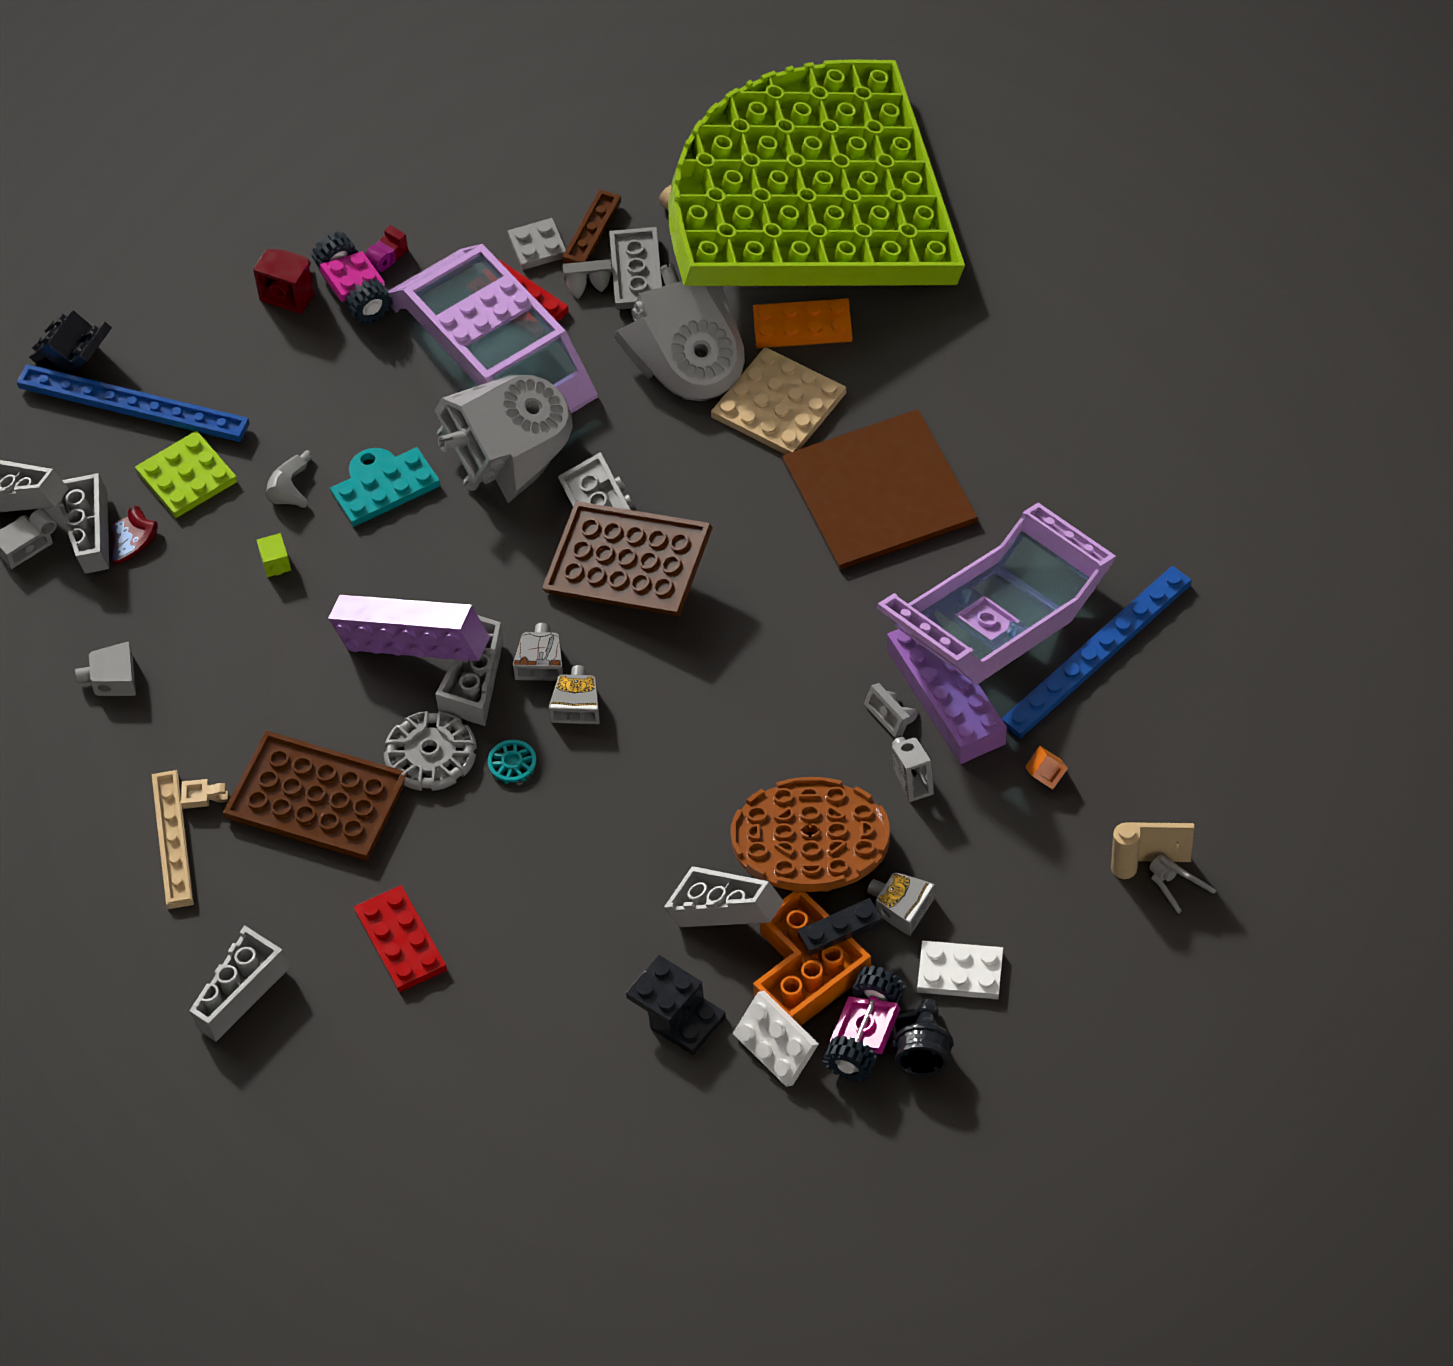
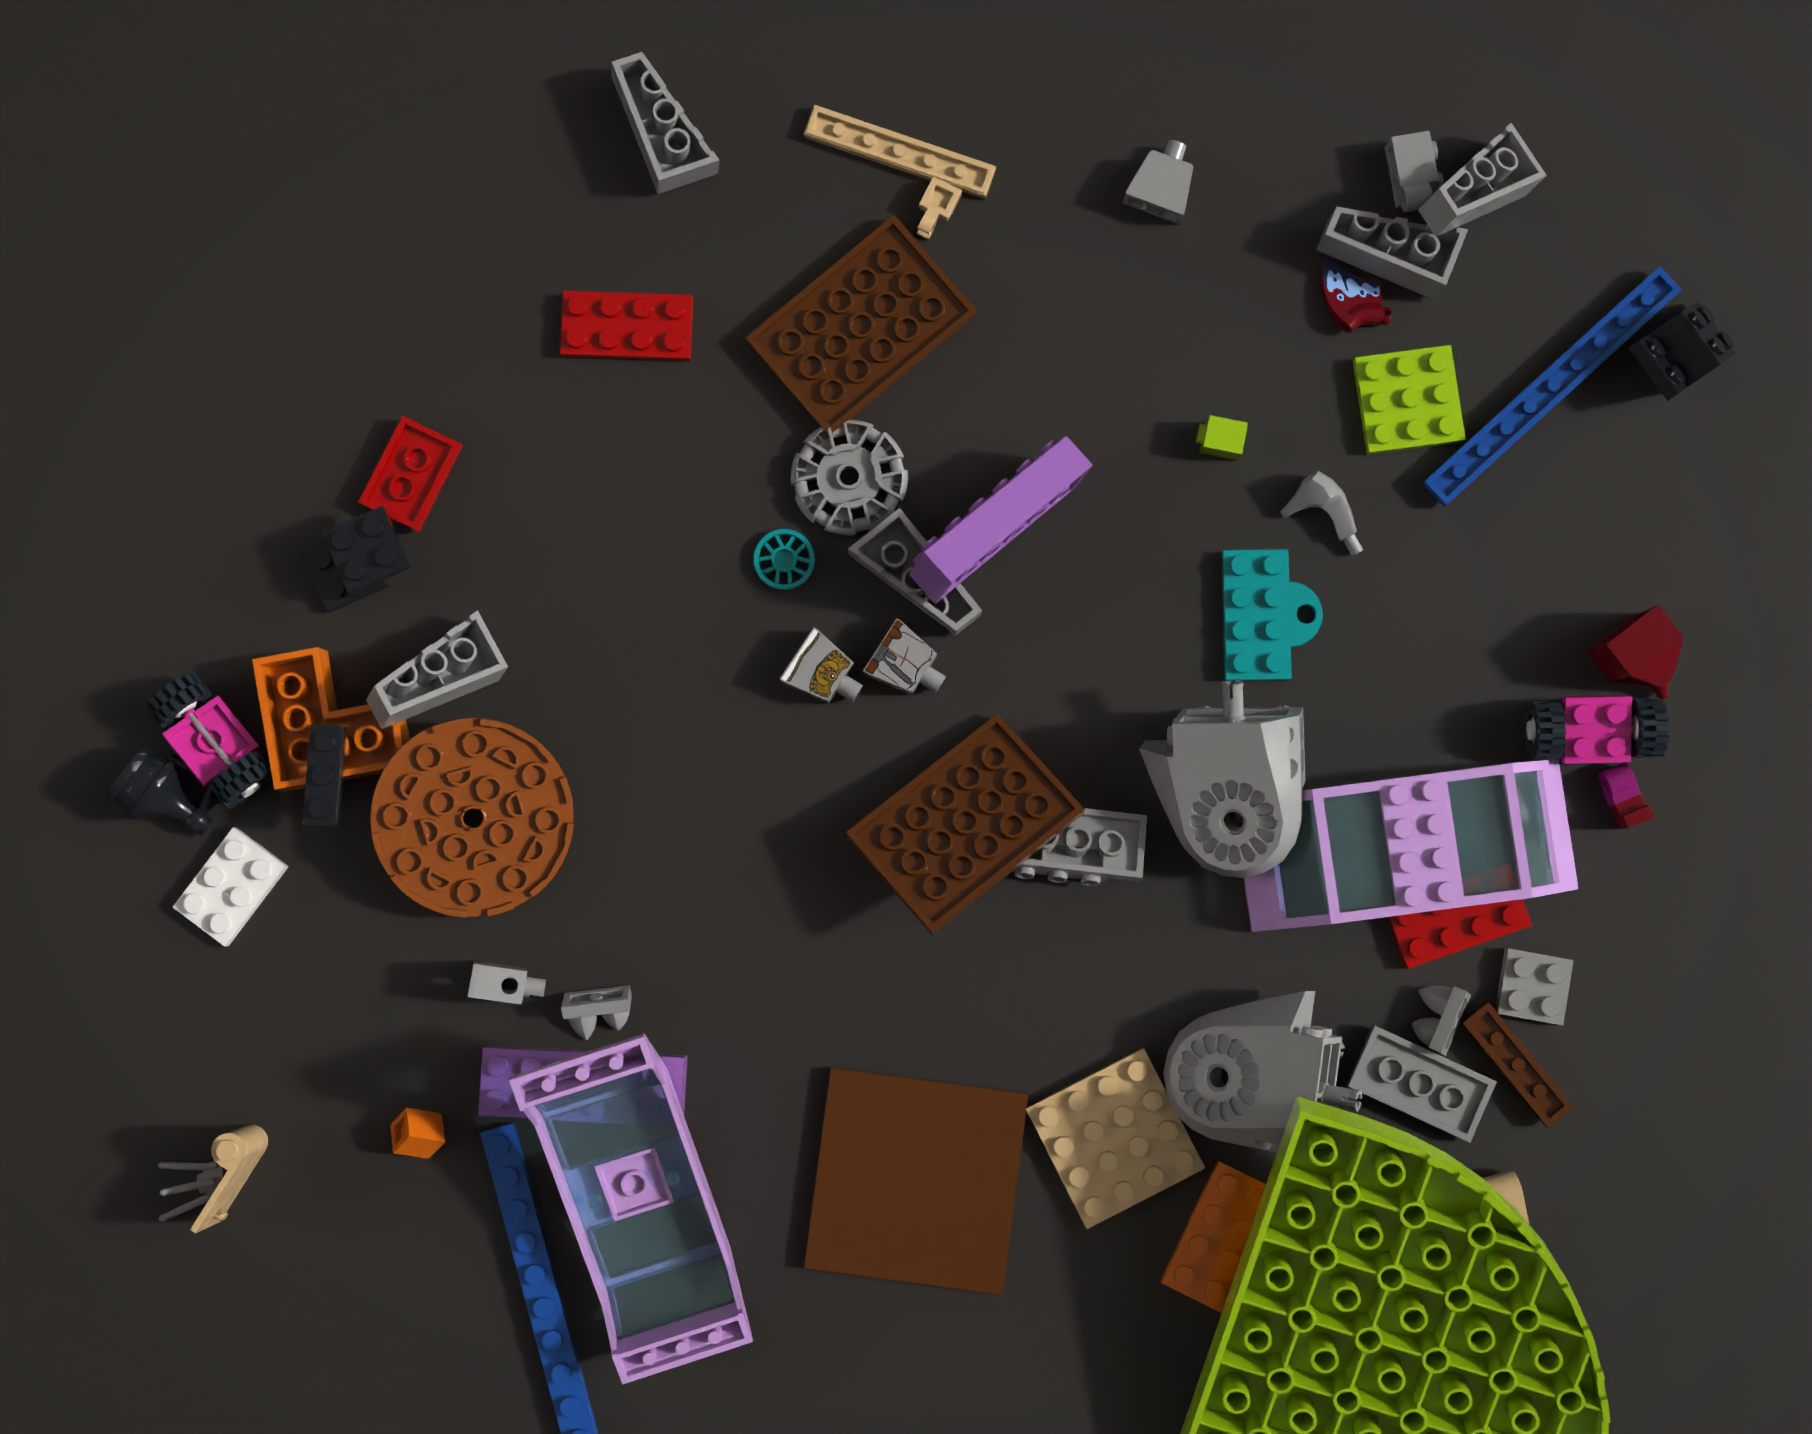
camera: 115 degrees right, 30 degrees up
(591, 1012) = (411, 473): none -> red plate
(775, 1038) = (250, 638): white plate -> none
(902, 900) = (342, 874): light grey torso -> none

